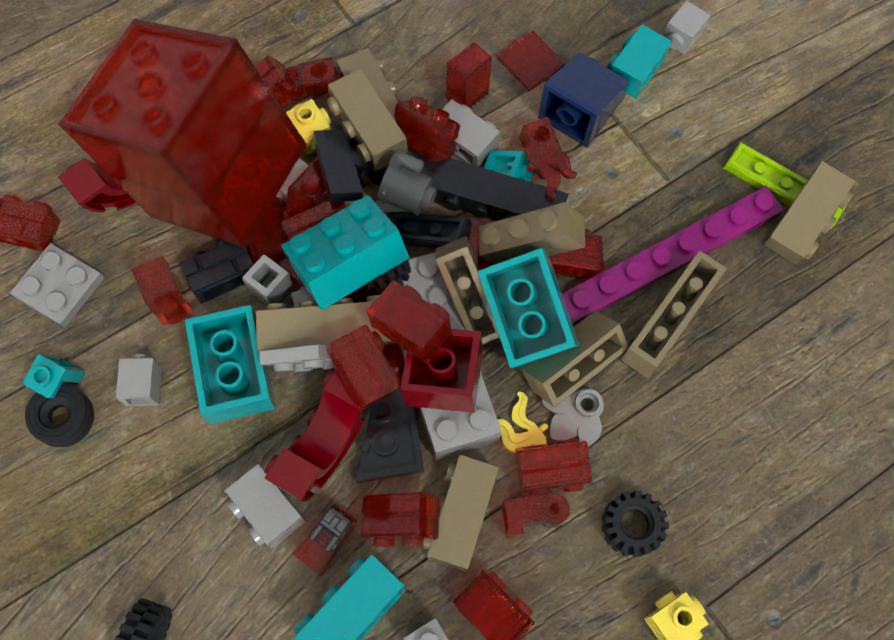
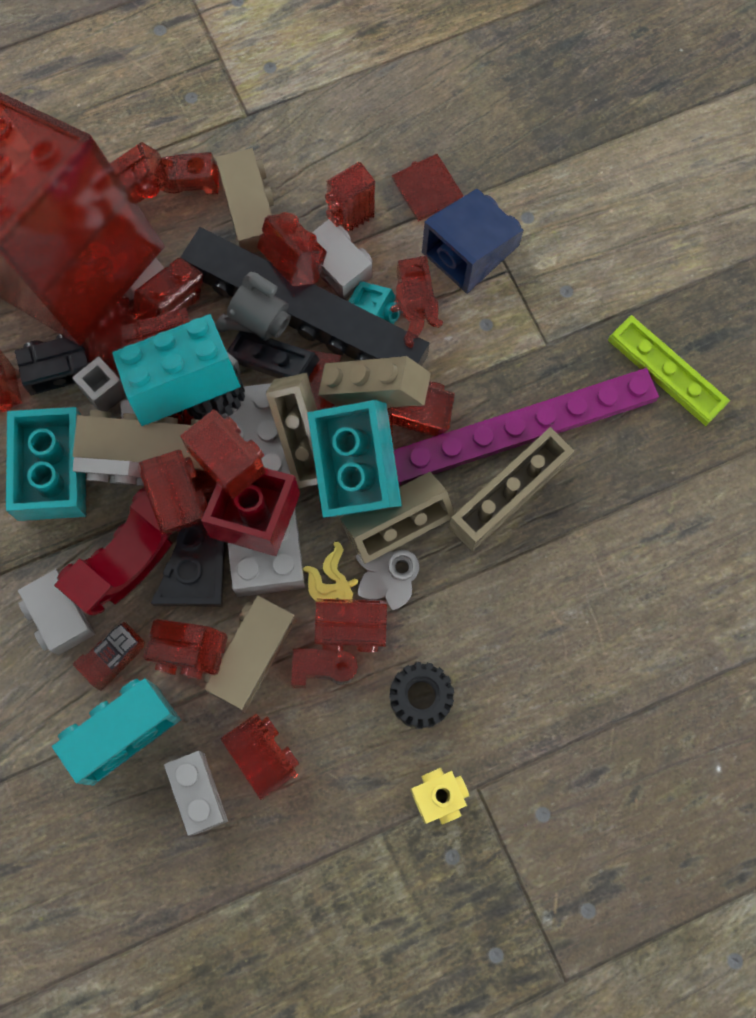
camera: 10 degrees right, 5 degrees up
(309, 118) = (173, 223): light yellow brick -> none
(337, 166) = (190, 275): black tile -> none
(366, 119) = (231, 229): dark tan brick -> none
(640, 58) = (543, 205): teal brick -> none
(686, 27) = (602, 177): light grey brick -> none
(811, 213) = (683, 406): dark tan brick -> none

